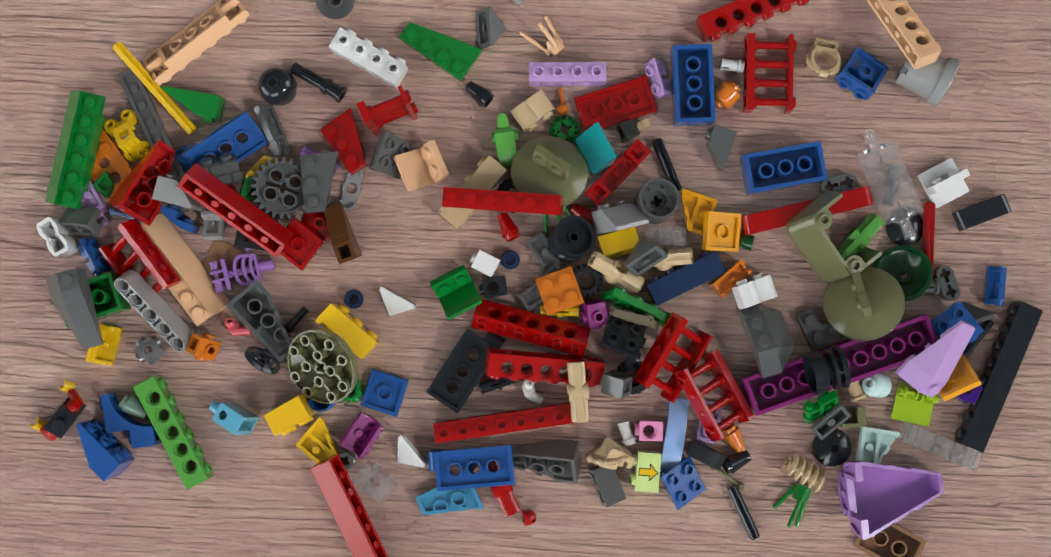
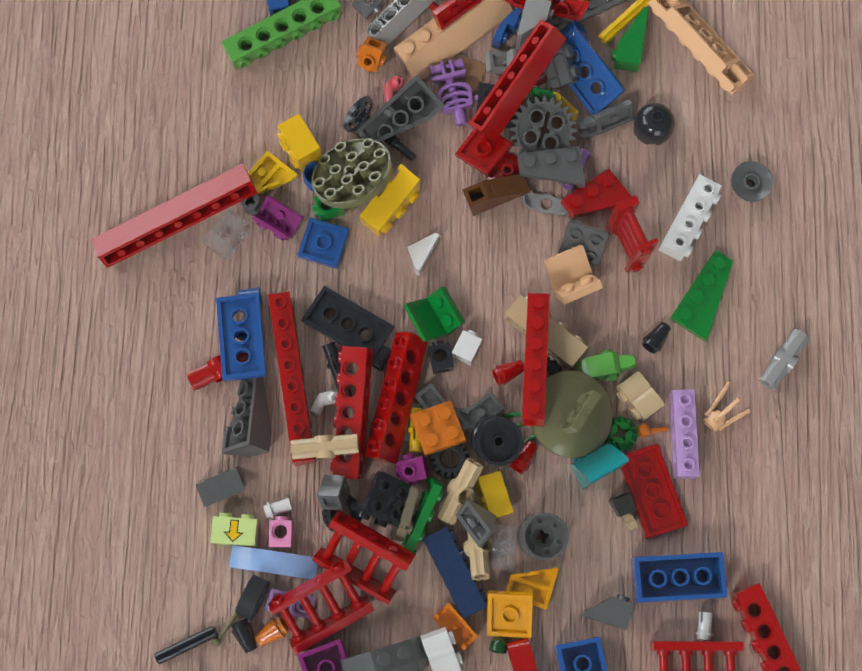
camera: 80 degrees right, 10 degrees down
(233, 417) = (296, 87): medium azure torso -> none
(325, 85) = (657, 173): black pin -> none
(347, 299) = (425, 202): dark blue plate -> none
(408, 453) = (258, 268): white slope -> none
(446, 501) = (205, 313): dark azure wing -> none
(488, 27) = (731, 347): dark grey slope -> none
(510, 259) = (471, 375): dark blue plate -> none
(528, 517) = (185, 400): red hinge -> none
(610, 455) = (253, 488): tan piece -> none
(618, 172) = (573, 493): red slope -> none
(618, 217) = (522, 491): light grey slope -> none
(654, 70) = (675, 541): lavender hinge -> none
(666, 163) = (584, 550): black axle -> none
(682, 482) = (221, 572): blue hinge -> none
(726, 94) = (669, 617): orange head -> none

